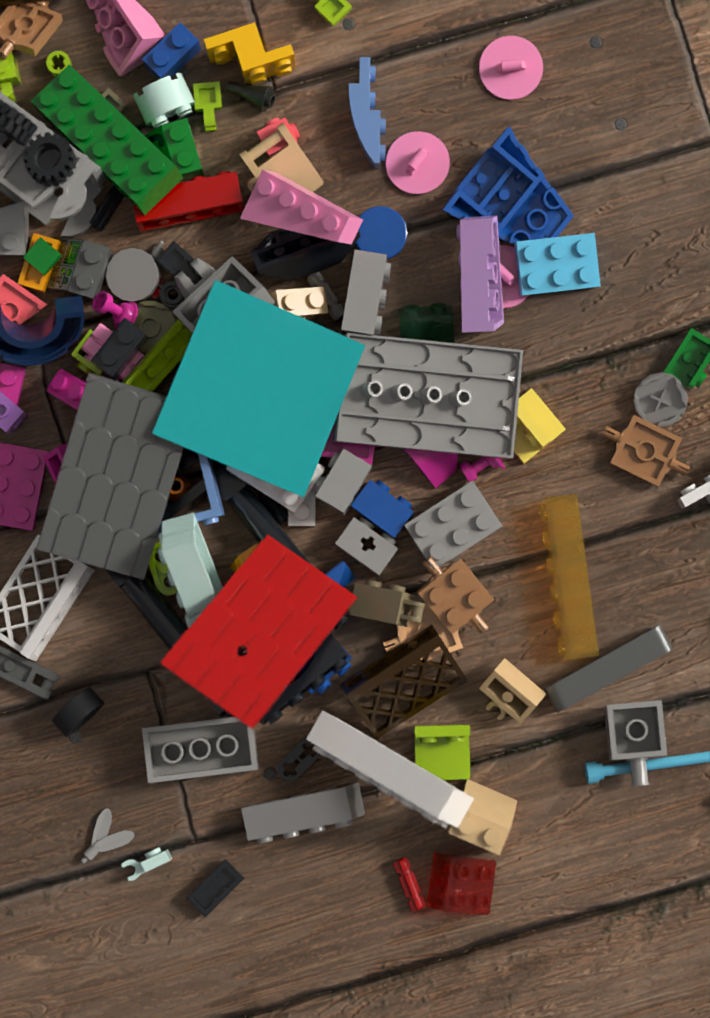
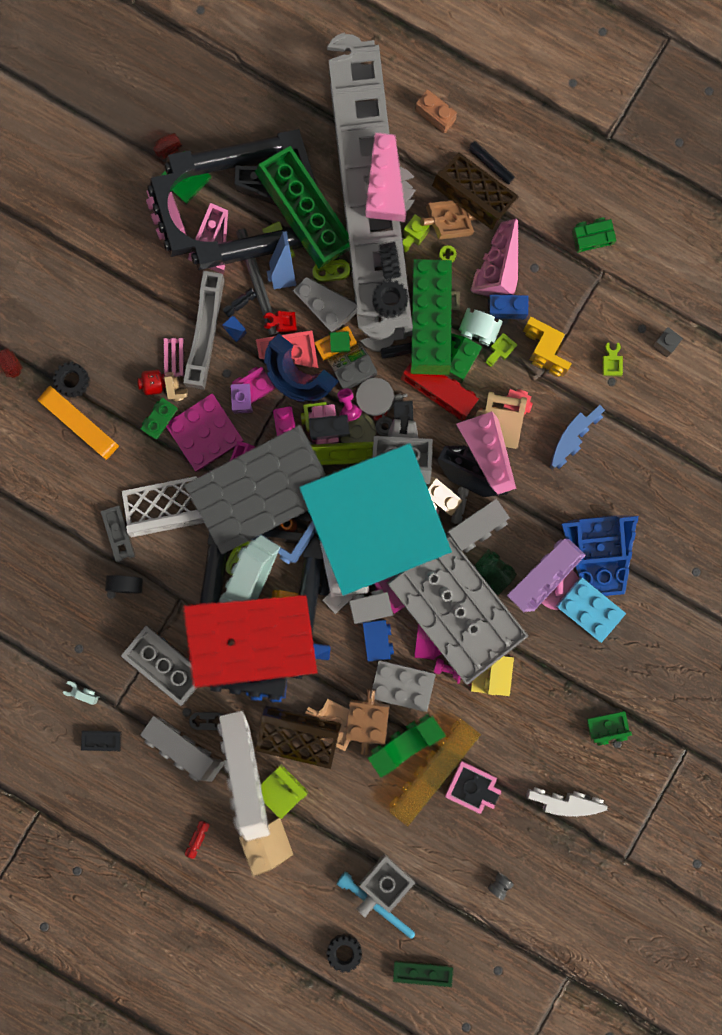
camera: 45 degrees right, 0 degrees up
(101, 841) = (71, 661): light grey piece -> none
(259, 96) = (529, 371): pearl dark grey cone -> none
(374, 560) = (346, 661): light grey brick -> none
(382, 231) = (520, 503): blue tile -> none
(385, 605) = (328, 690): dark tan brick -> none
(417, 162) = (574, 486): bright pink shield -> none
(461, 884) = (221, 866): clear red bracket -> none
(511, 67) = (670, 487): bright pink shield -> none
(511, 692) = (345, 799): tan brick -> none
(514, 577) = (405, 744): none -> green brick
(608, 668) = (406, 837): dark grey beam -> none
(622, 553) = (473, 788): none -> piece
(645, 451) = (538, 748): medium nougat plate -> none
(660, 399) = (572, 731): light grey tile -> none
(682, 845) = (344, 965): none -> black tyre

